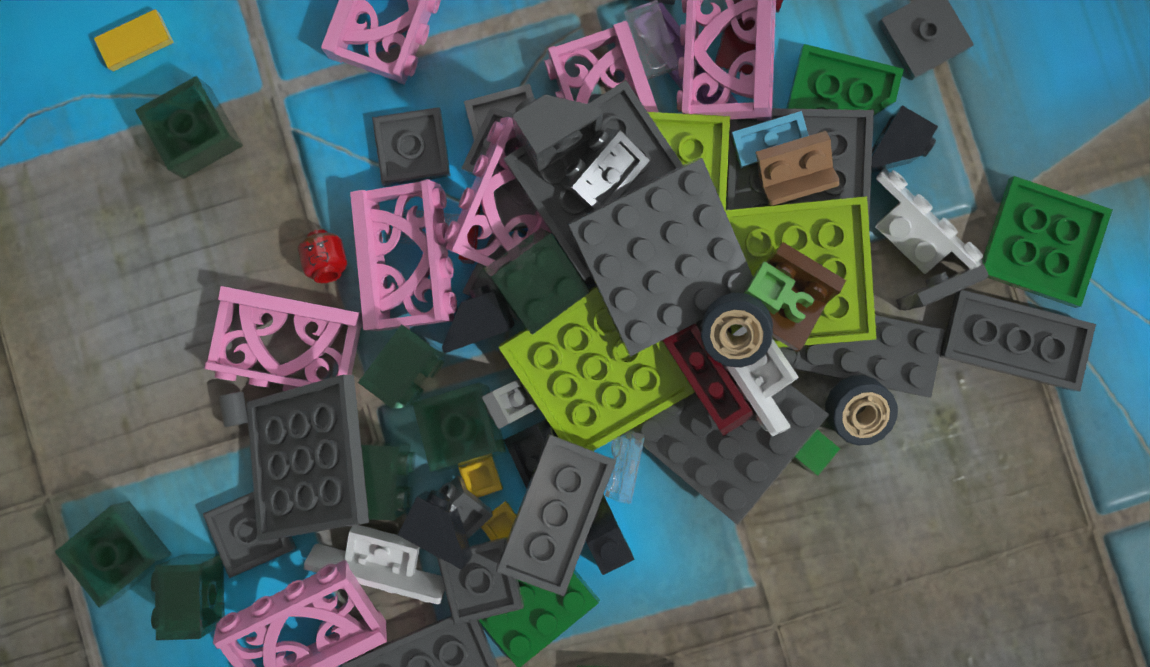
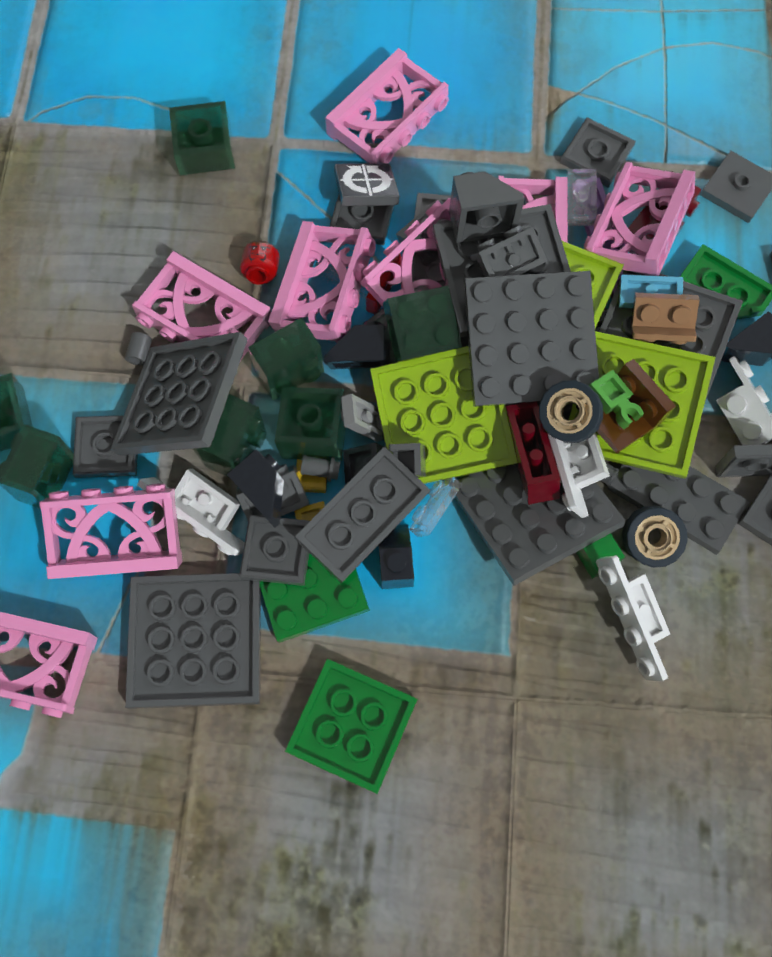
camera: 20 degrees right, 15 degrees down
(133, 40) = (188, 72): yellow tile -> none
(402, 114) = (366, 184): none -> tile
(488, 471) = (320, 467): none -> dark grey pin
(581, 430) = (412, 456): none -> dark grey panel
(873, 500) = (638, 613): none -> white bracket

